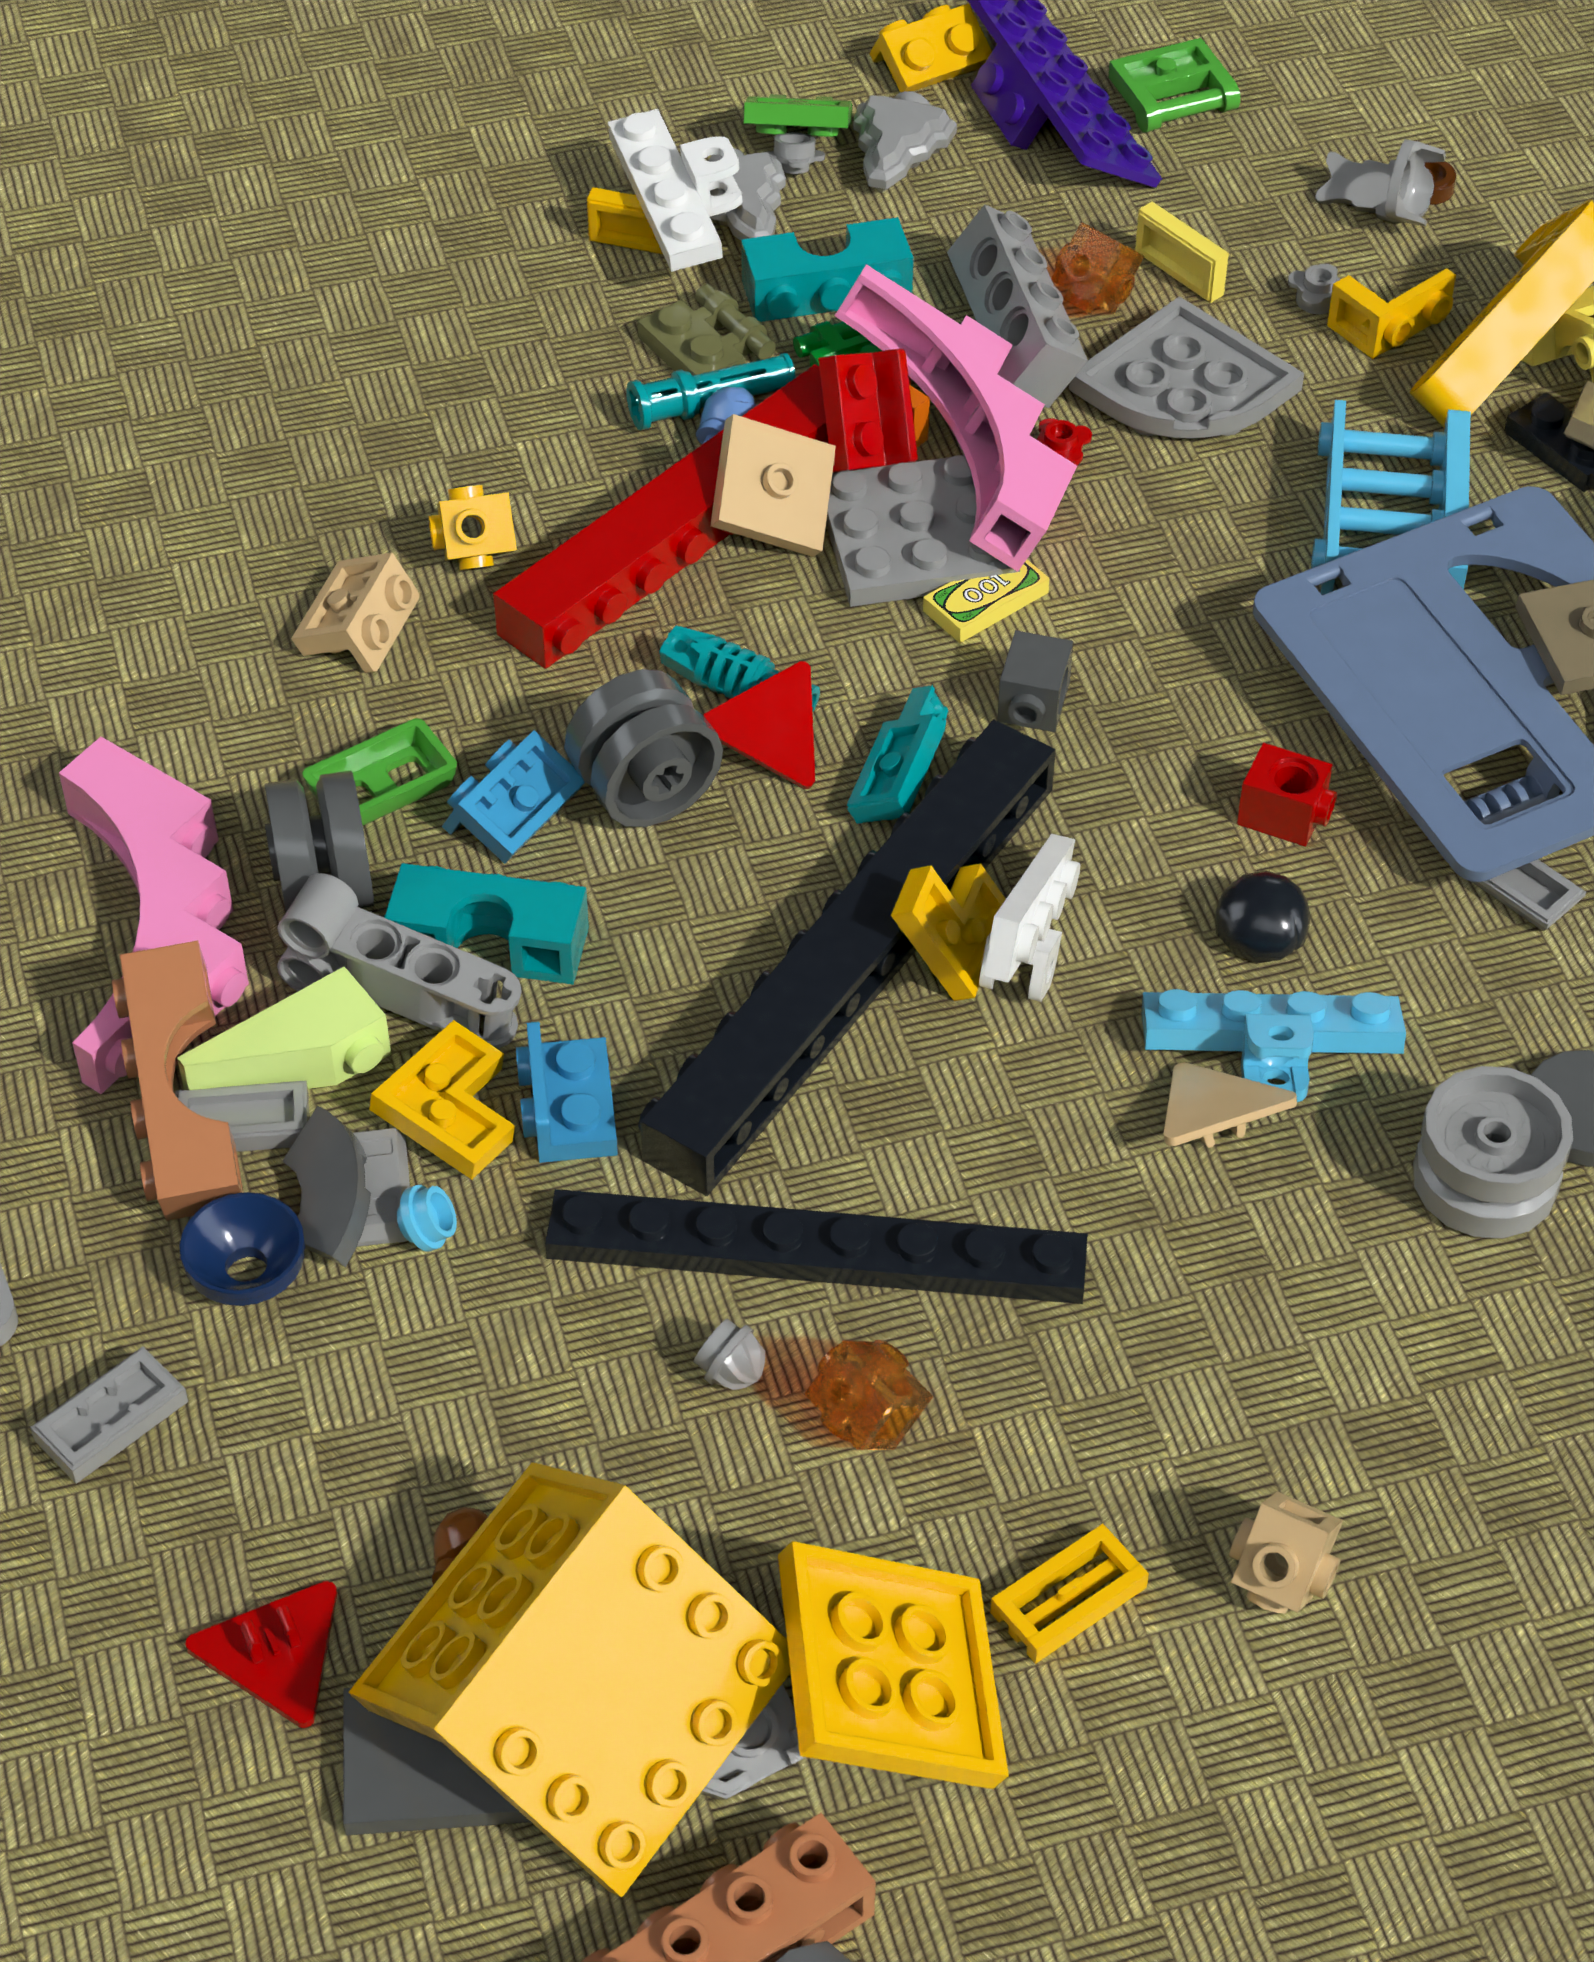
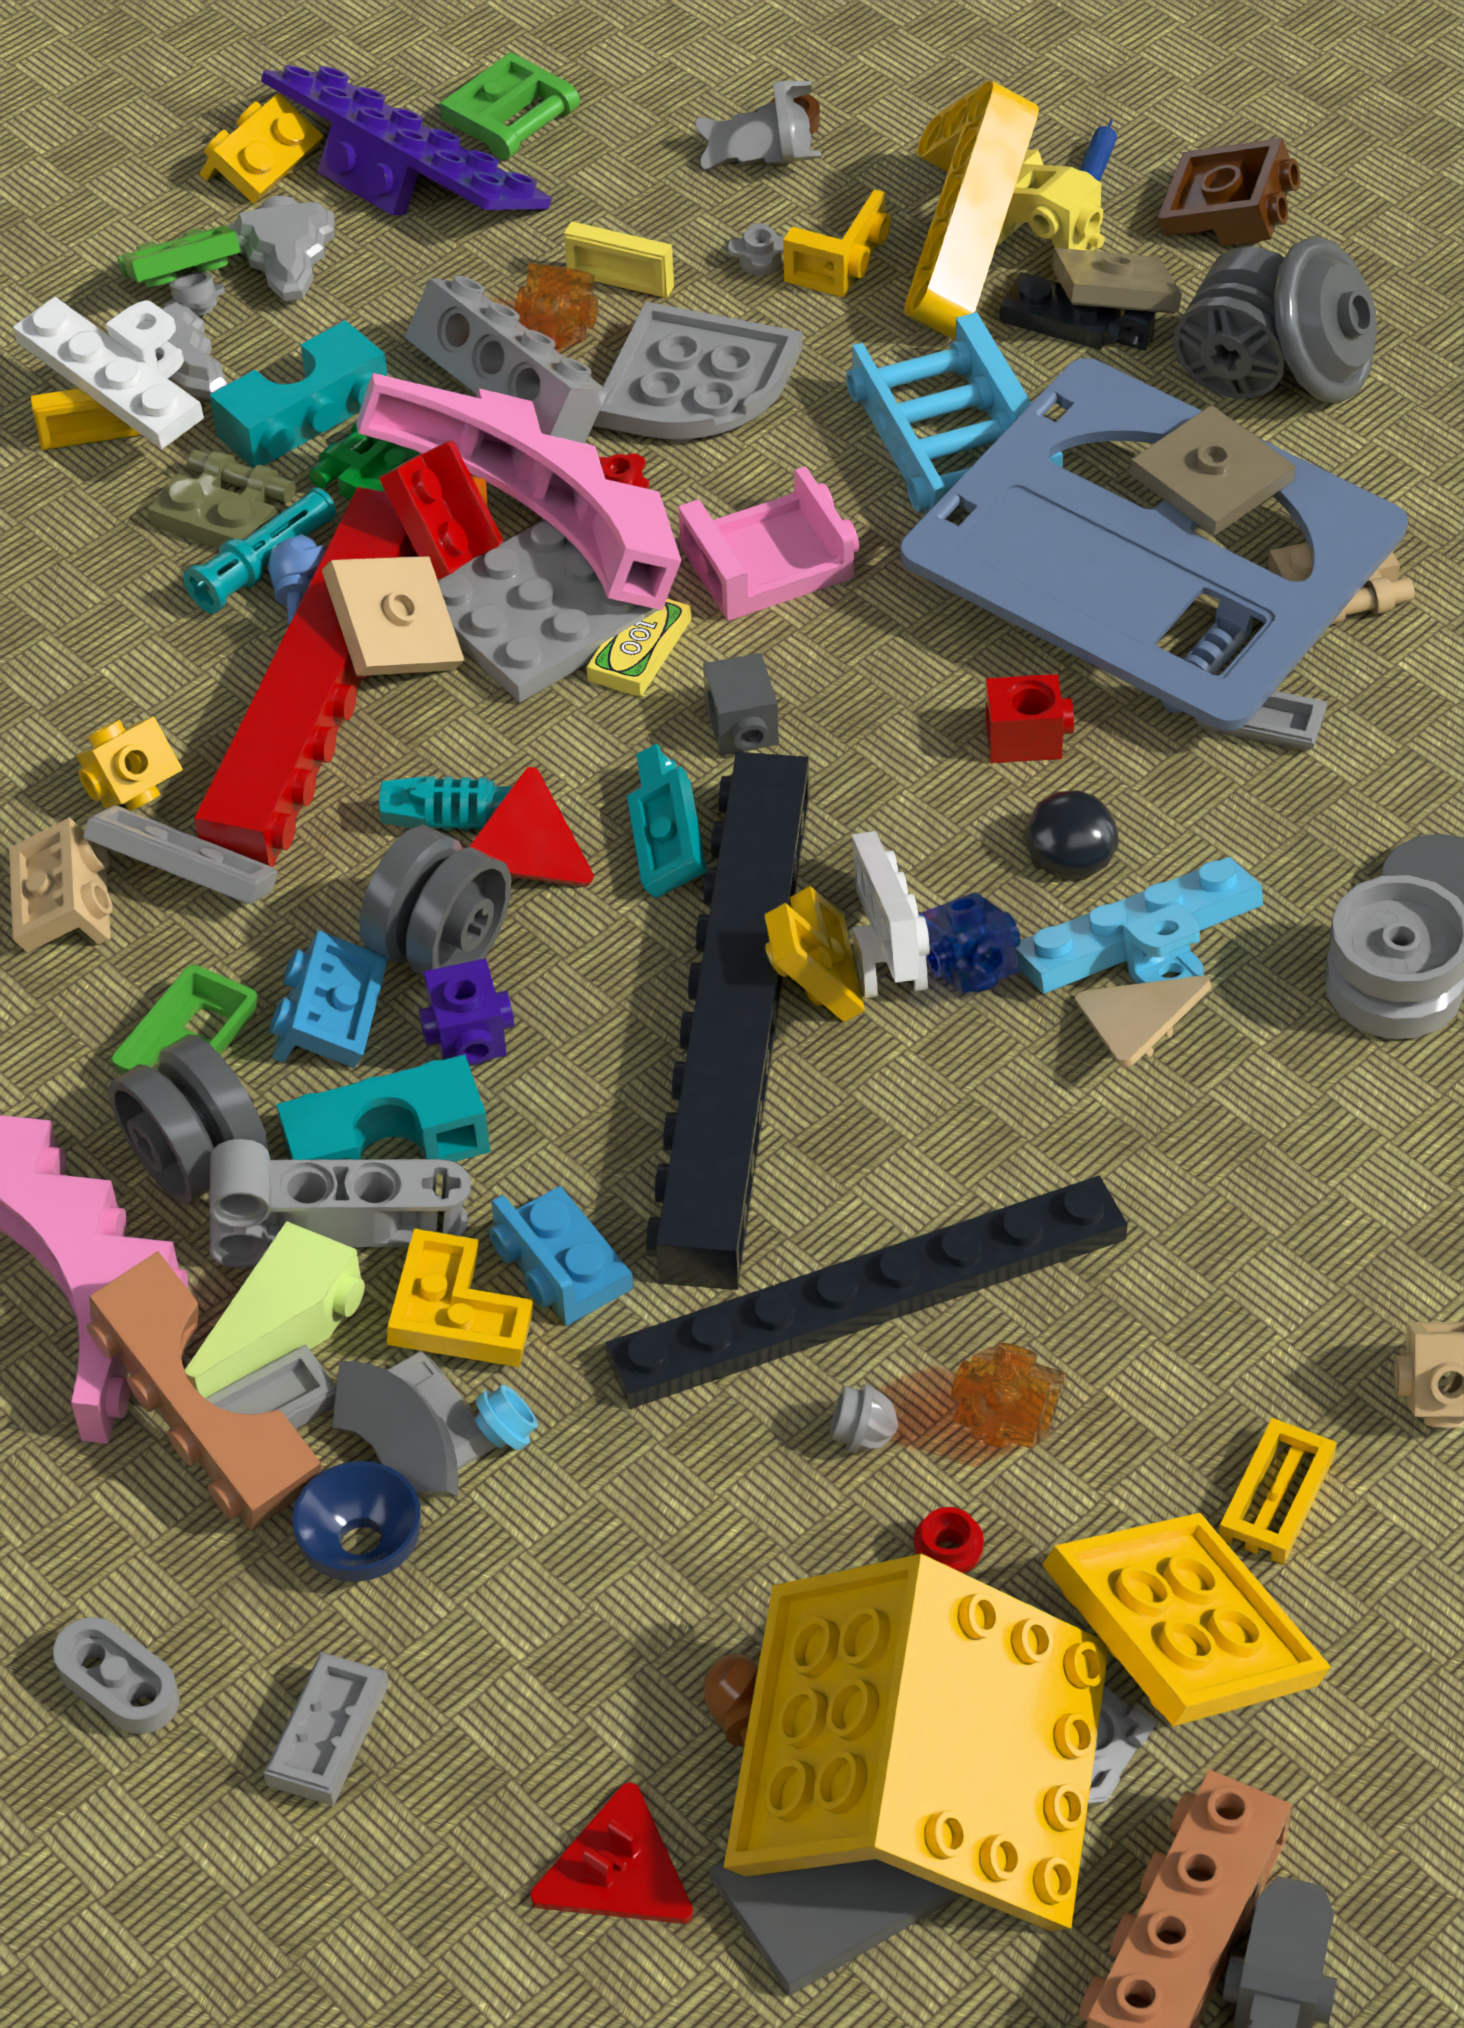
camera: 25 degrees left, 0 degrees up
(469, 621) = (181, 854): none -> light grey tile
(611, 865) = (465, 1012): none -> dark purple brick
(739, 1484) = (954, 1526): none -> red plate
(1099, 975) = (971, 943): none -> clear blue brick
(1154, 556) = (770, 548): none -> bright pink panel

